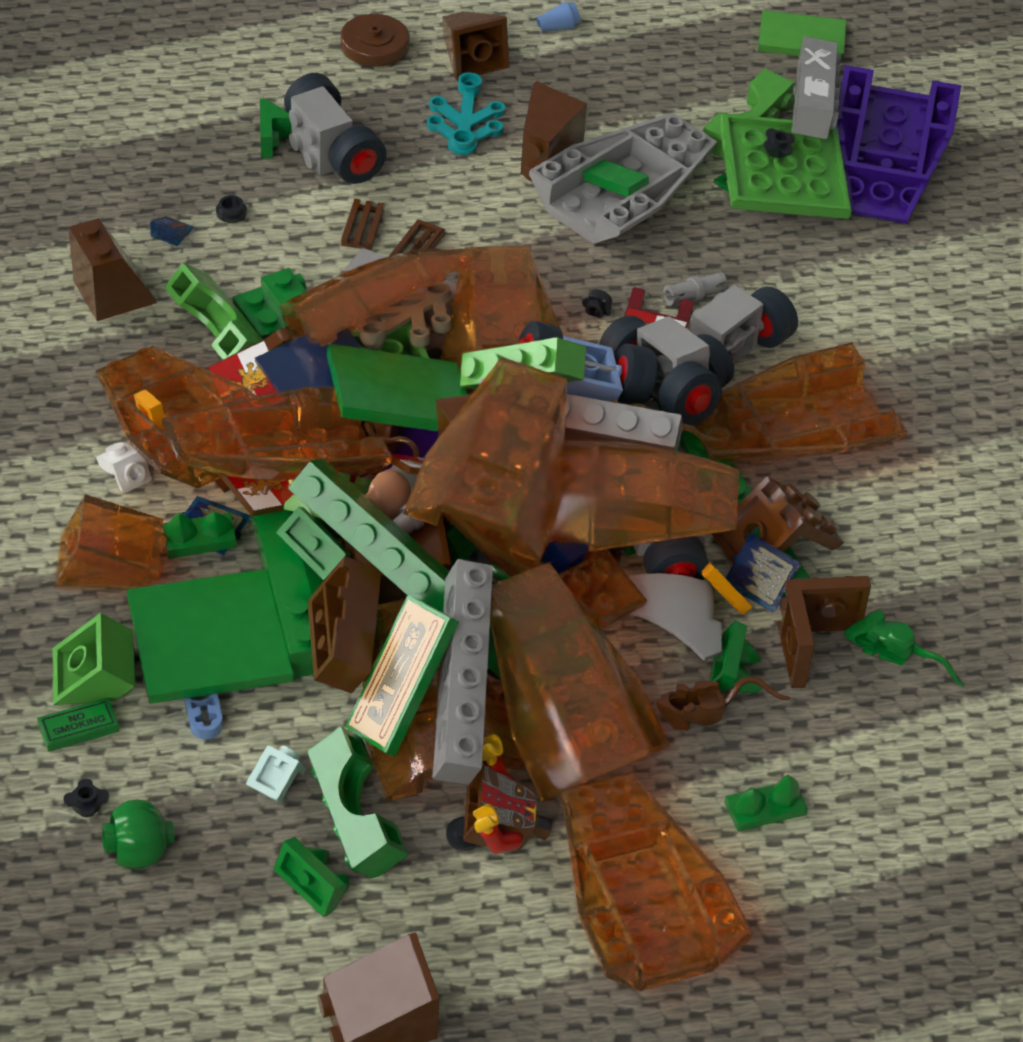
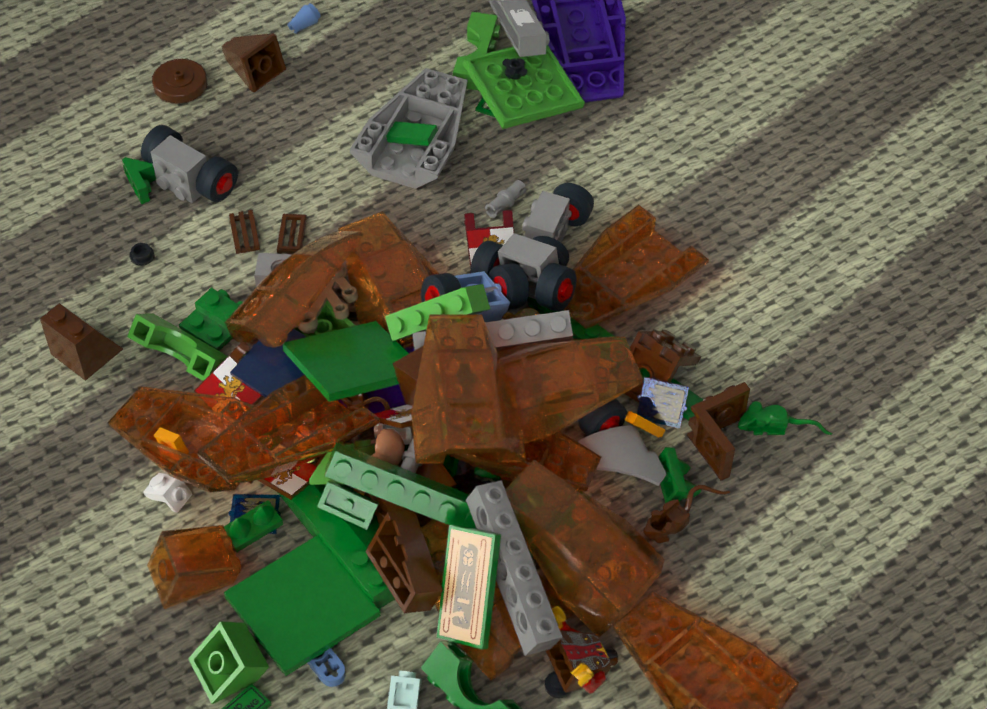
camera: 20 degrees left, 5 degrees up
(169, 230) = (104, 287): slope -> none
(463, 140) = (267, 94): teal plant -> none
(551, 125) = (346, 111): reddish brown slope -> none
(564, 555) = (536, 447): clear blue slope -> none
(597, 303) = (444, 235): black plate -> none
(766, 804) = (749, 577): green tile -> none

